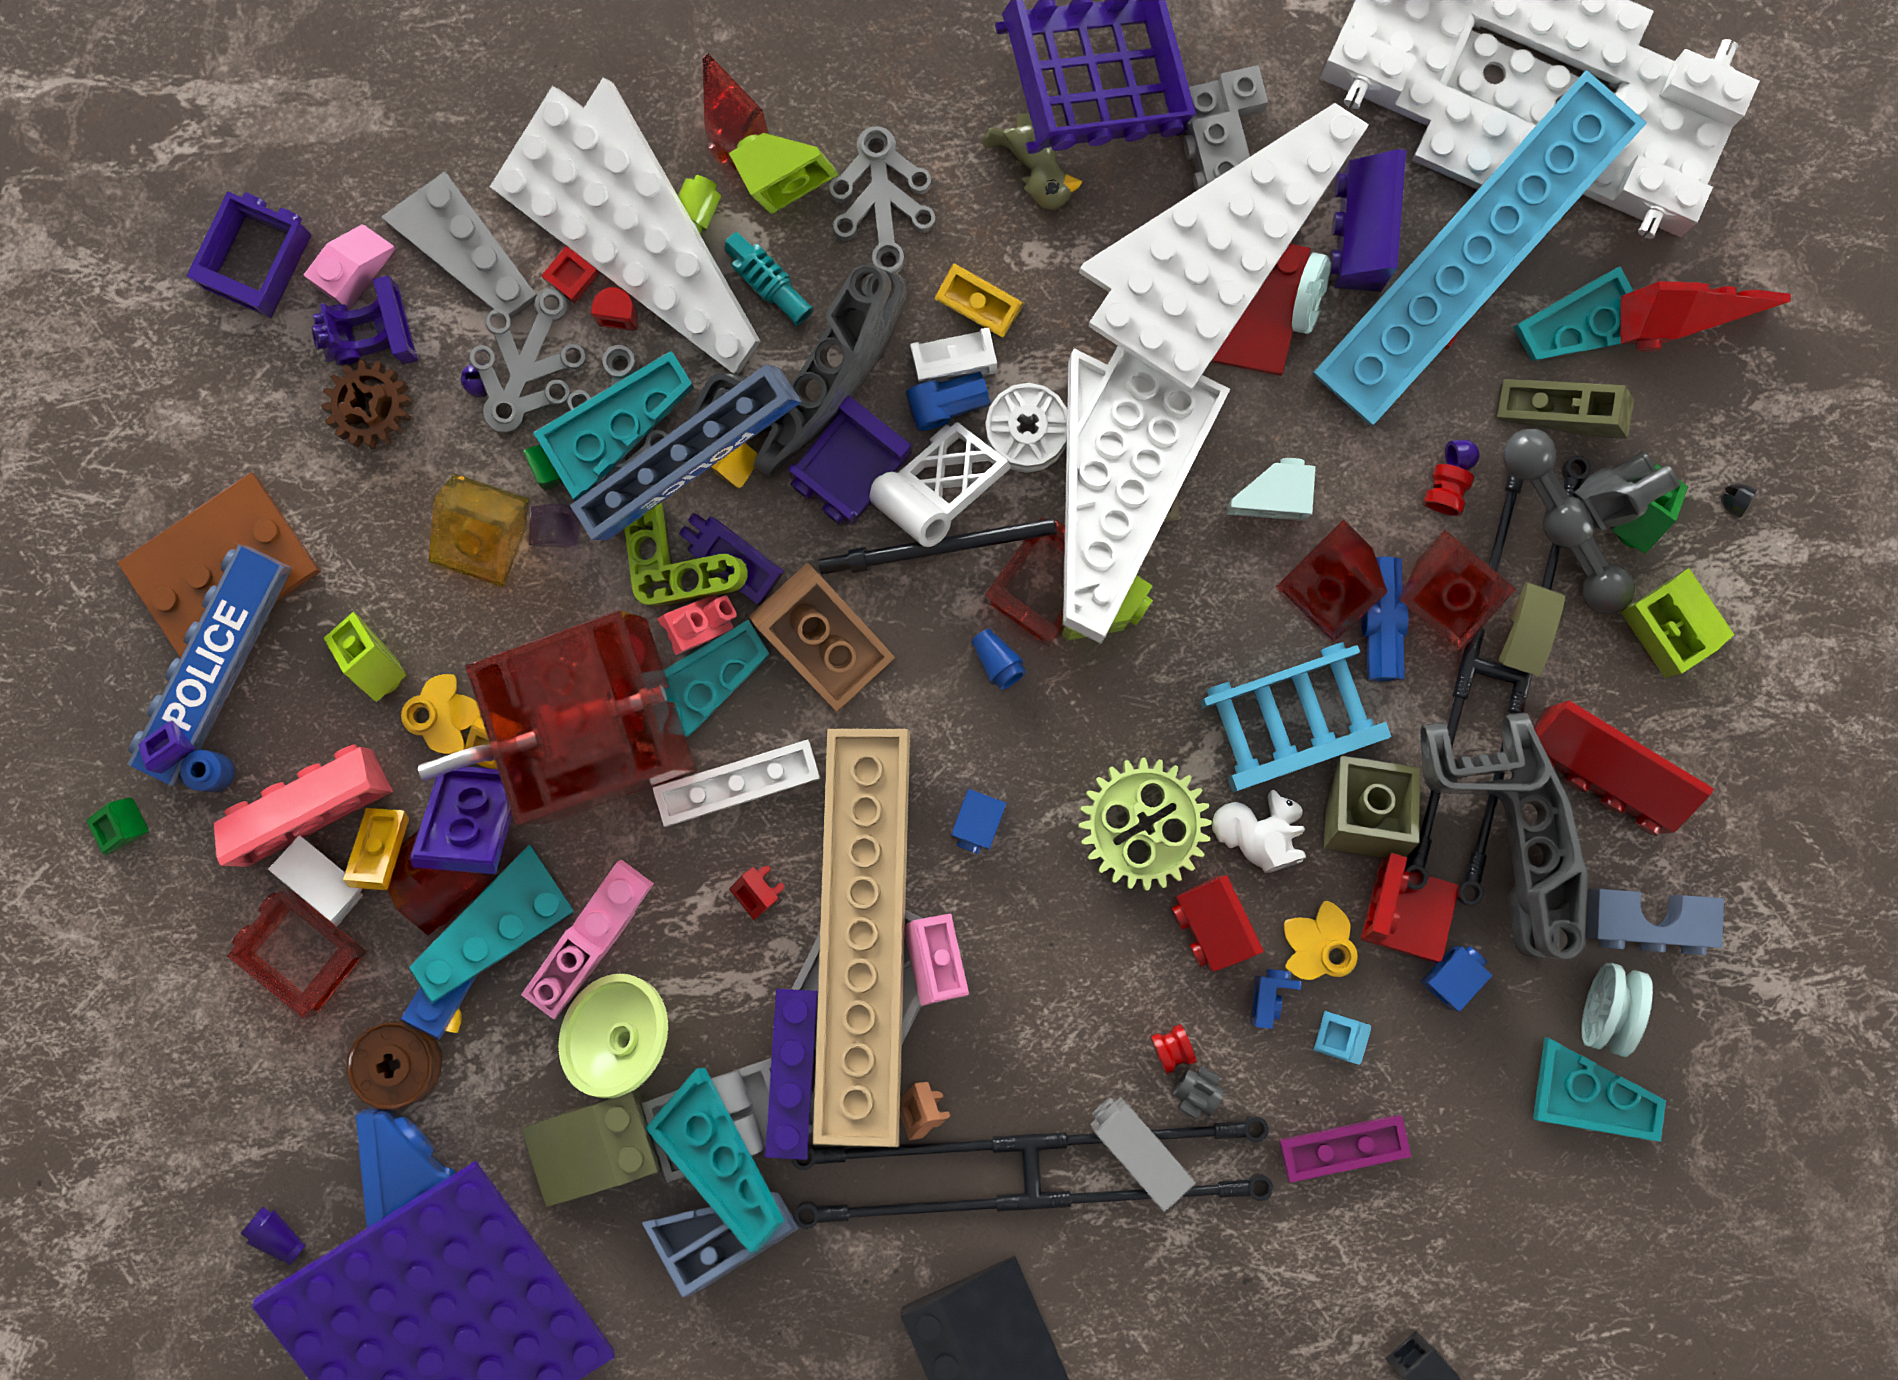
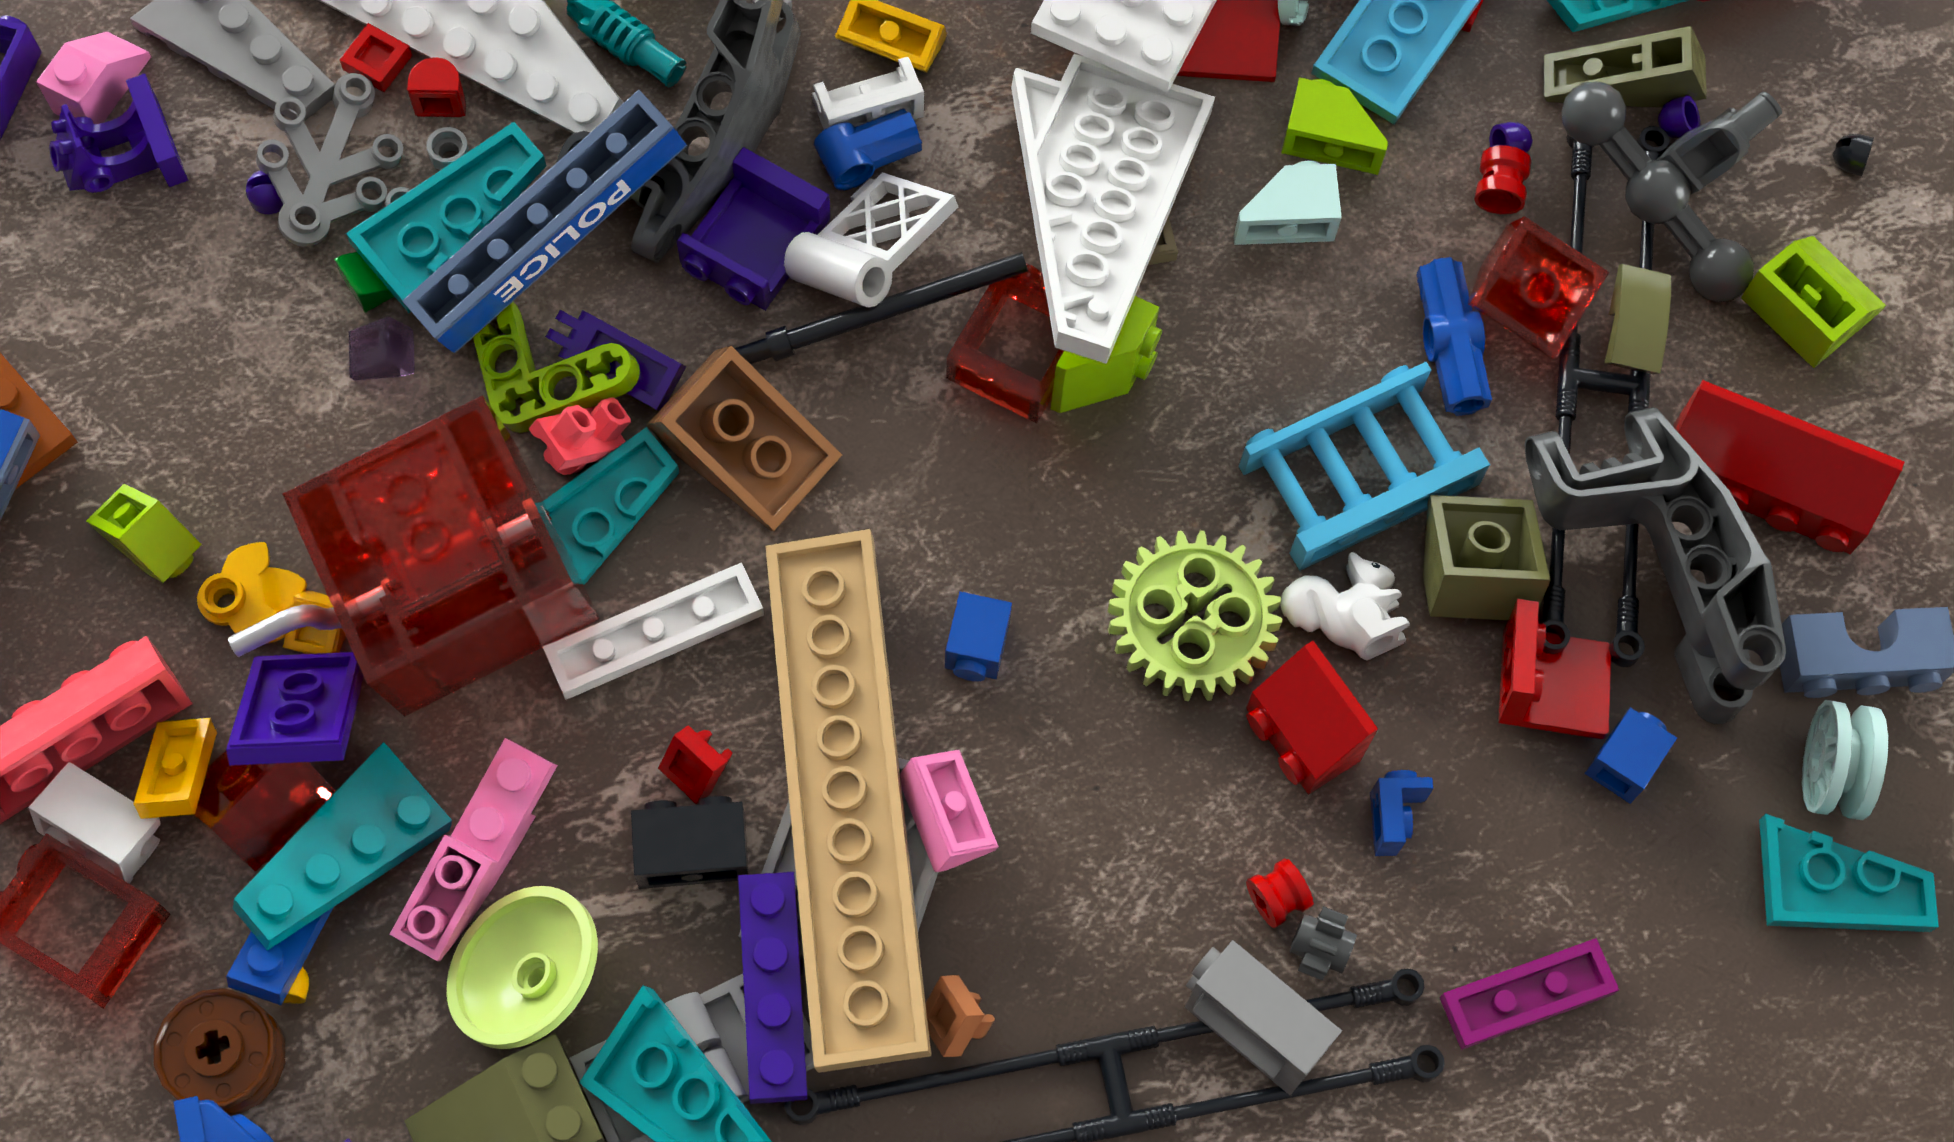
camera: 15 degrees left, 15 degrees down
(380, 401) = (109, 250): reddish brown gear -> none
(477, 529) = (281, 362): clear yellow slope -> none
(736, 466) = (607, 249): yellow slope -> none
(745, 954) = (689, 843): none -> black brick
(998, 659) = (977, 442): blue cone -> none
(1027, 404) = (976, 161): white wheel -> none
(1316, 939) = (1443, 732): yellow plate -> none
(1319, 426) = (1333, 128): none -> lime slope
(1336, 581) = (1383, 298): clear red slope -> none
(1342, 1038) = (1499, 854): medium azure slope -> none
(1603, 451) = (1679, 116): none -> dark purple hinge
(1653, 525) = (1751, 181): green slope -> none

